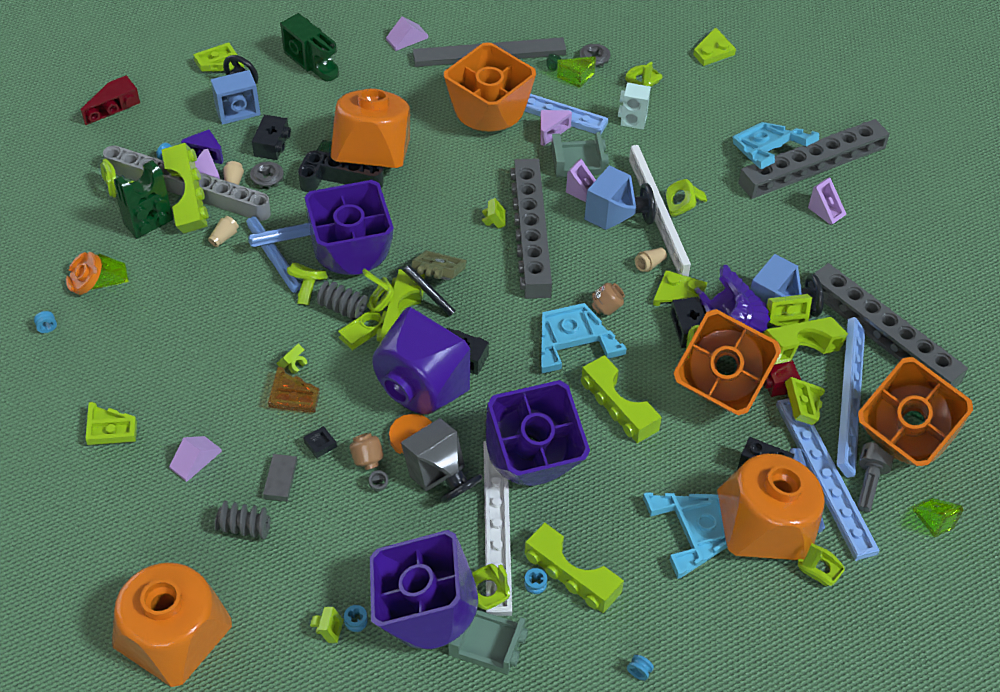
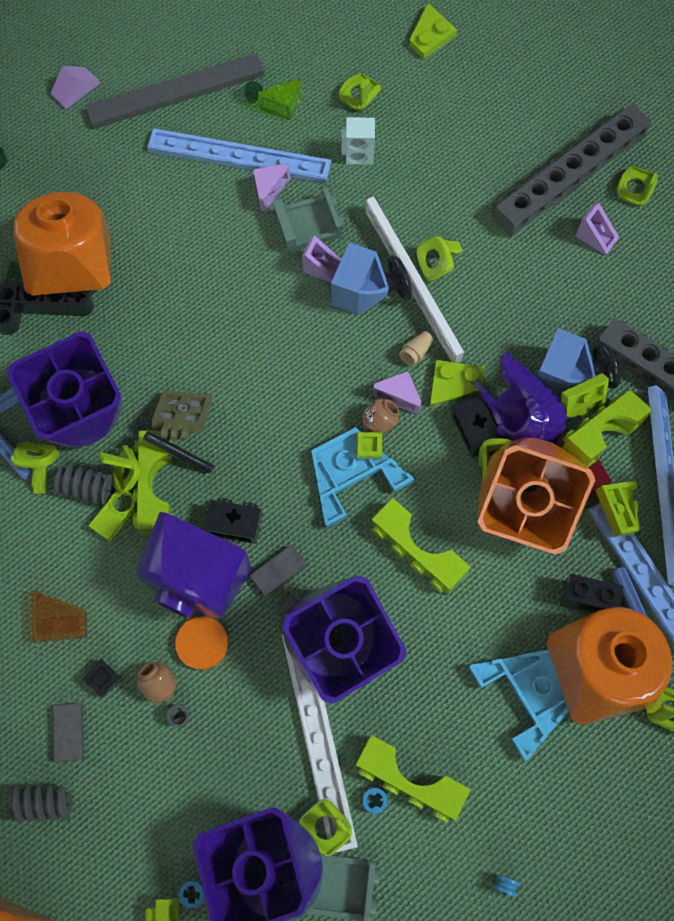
camera: 10 degrees left, 20 degrees up
(292, 357) = (43, 572): lime tile -> none
(437, 456) = (240, 684): dark grey piece -> none
(480, 397) = (278, 571): none -> flat silver tile
(489, 88) = (188, 155): orange piece -> none
(494, 214) = (231, 324): lime tile -> none
(532, 229) = (257, 257): dark grey brick -> none
(593, 316) = (369, 445): none -> lime tile
(594, 49) = (294, 63): flat silver gear -> none
(631, 284) = (400, 391): none -> lavender slope
(764, 137) = (513, 154): medium azure wing -> none
(878, 175) = (647, 178): none -> lime piece

